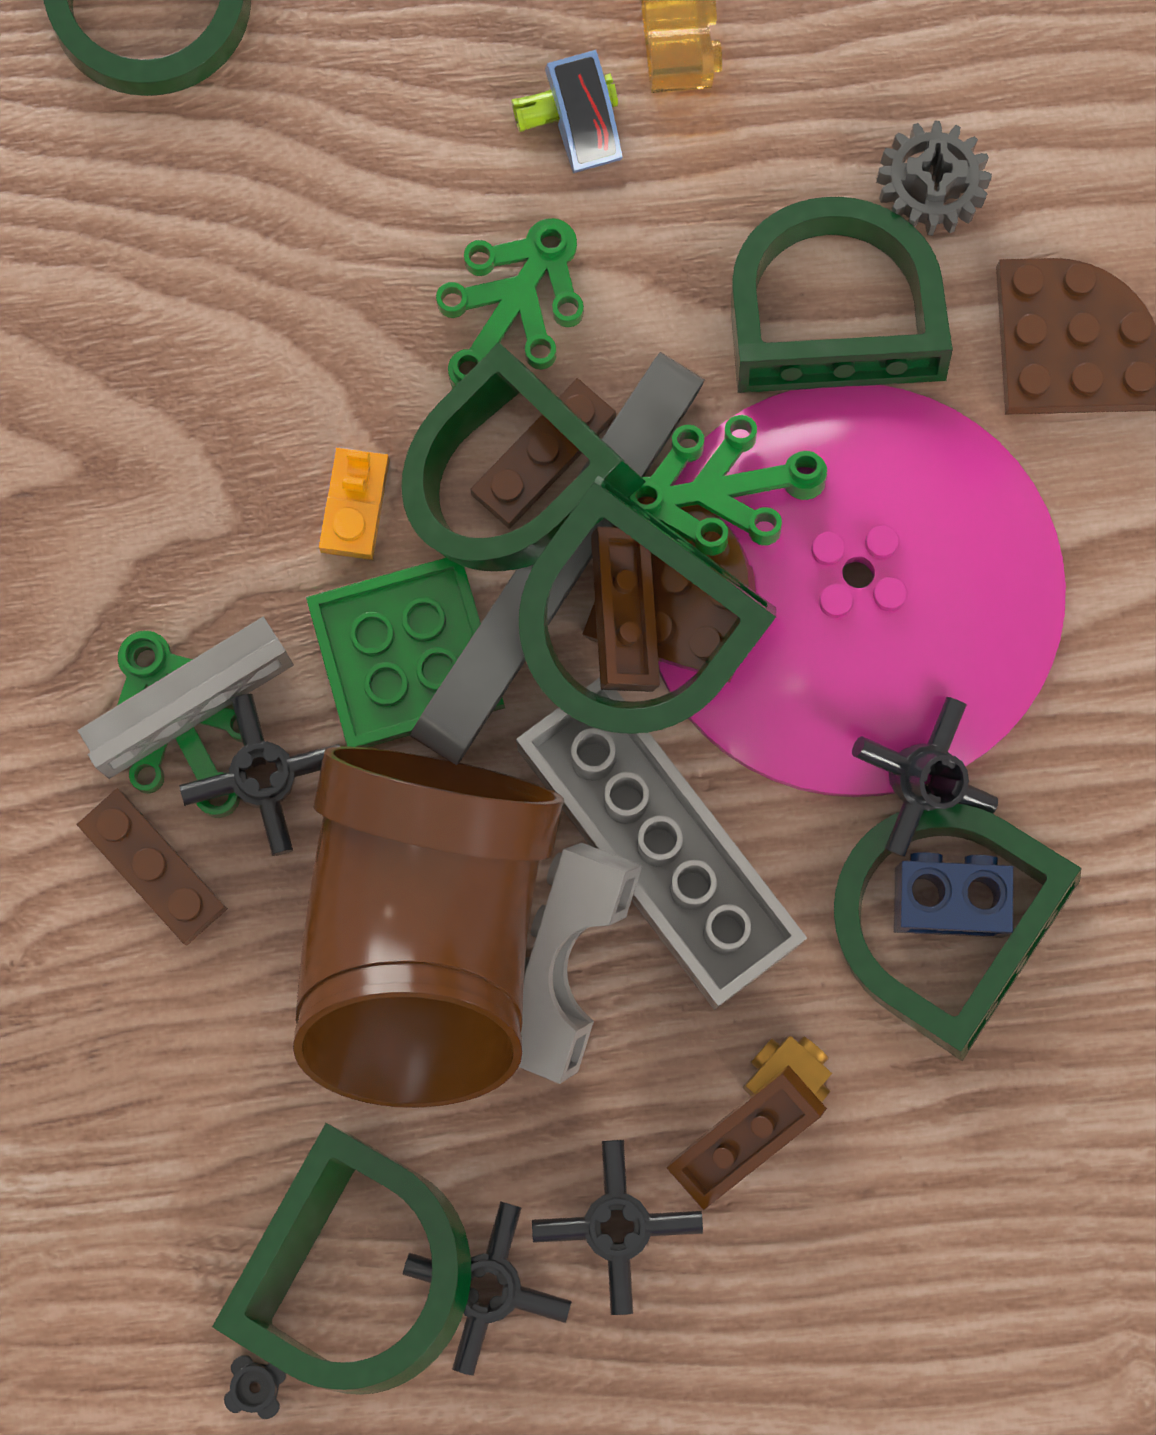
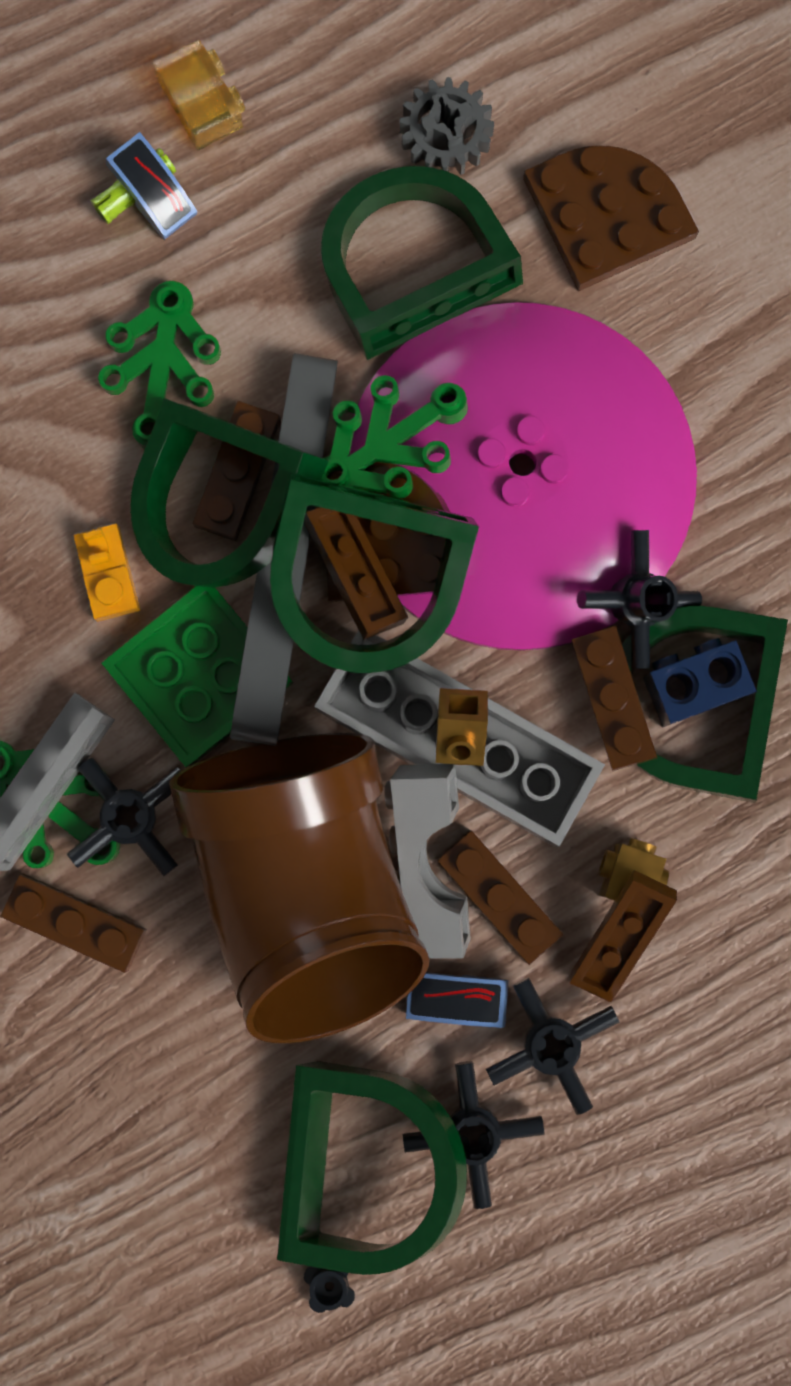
camera: 20 degrees left, 5 degrees up
(534, 1132) = (459, 1000): none -> black slope
(630, 1040) = (500, 897): none -> reddish brown plate
(665, 825) = (461, 726): none -> pearl gold brick
(850, 874) = (614, 698): none -> reddish brown plate

